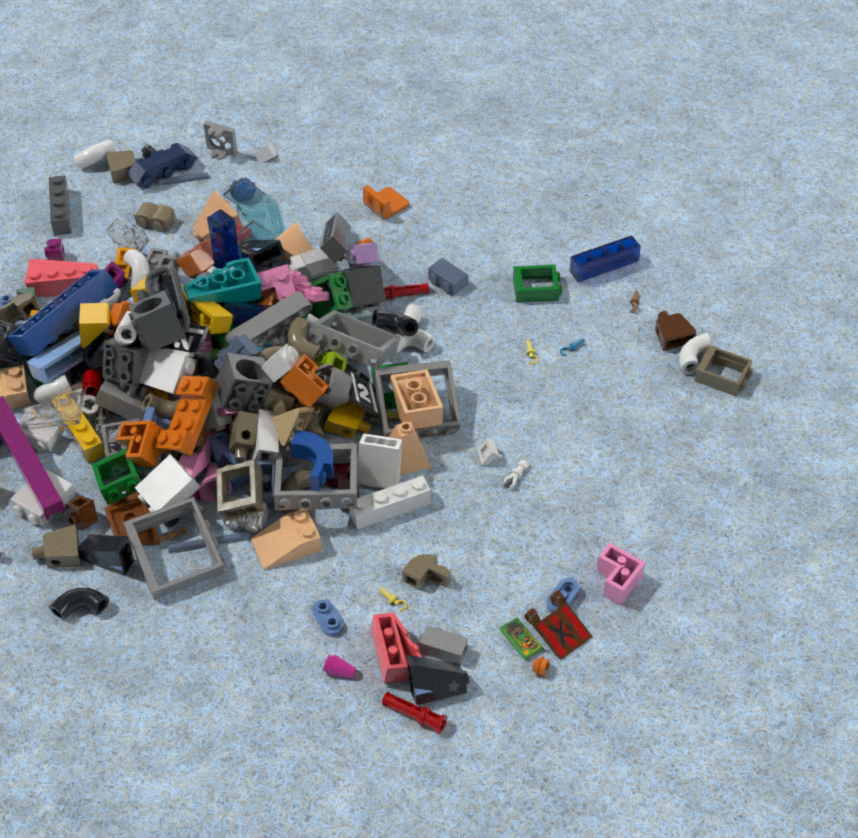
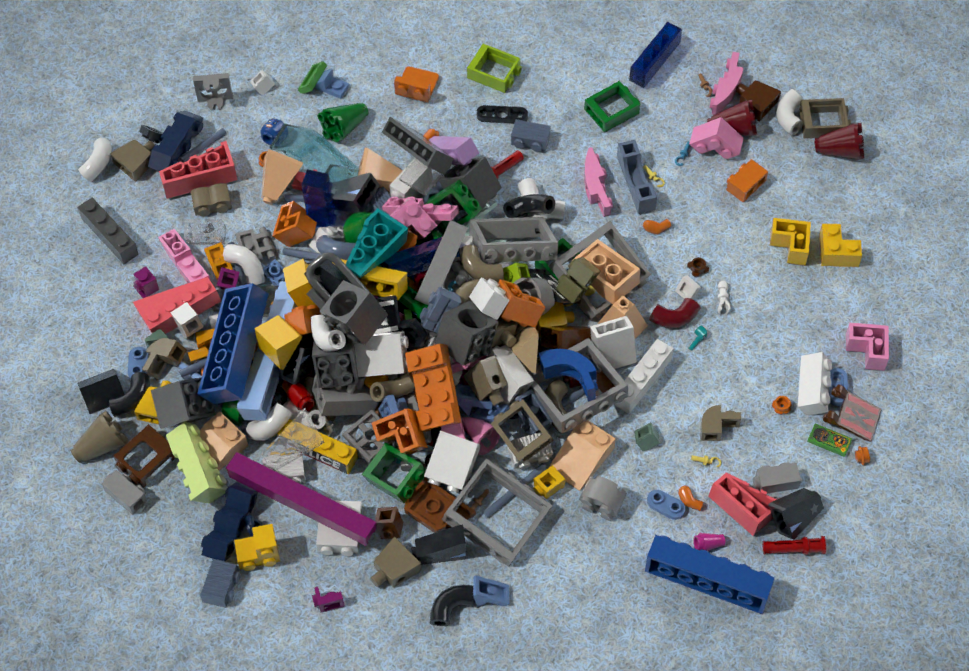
camera: 30 degrees left, 10 degrees up
(53, 285) = (186, 320): none -> white slope
(98, 245) = (182, 256): none -> bright pink slope
(112, 605) = (490, 591): none -> medium blue slope
(176, 193) = (199, 171): none -> coral wedge
(238, 547) = (549, 476): none -> yellow brick
(271, 580) = (602, 496): none -> light grey brick
(302, 201) = (341, 120): none -> green cone
(305, 164) = (312, 77): none -> bright green tile
(312, 691) = (709, 573): none -> blue brick
(317, 176) = (331, 85): none -> medium blue slope
(339, 434) = (563, 336): none -> reddish brown slope
(349, 623) = (687, 498): none -> orange arm
(355, 554) = (647, 437): none -> sand green slope
(374, 392) = (578, 276): none -> olive piece
(433, 247) = (499, 109): none -> black beam
(454, 203) = (500, 57): none -> lime window
(459, 470) = (675, 318): none -> dark red cylinder
(472, 491) = (700, 332): none -> teal hand
(473, 332) = (594, 183): none -> bright pink slope
(499, 582) = (782, 400): none -> orange plate
(500, 393) = (655, 227): none -> orange arm
(508, 355) = (631, 165): none -> sand blue arch
(513, 435) = (698, 262): none -> reddish brown plate
(540, 581) = (814, 383): none -> white brick
(609, 343) = (717, 136): none -> bright pink brick
(611, 390) = (746, 180): none -> orange brick
(616, 453) = (794, 236): none -> yellow brick
(637, 337) = (739, 118): none -> dark red cone
(648, 310) = (726, 87): none -> bright pink slope
(651, 482) = (837, 251): none -> yellow brick
(726, 396) = (842, 142): none -> dark red cone

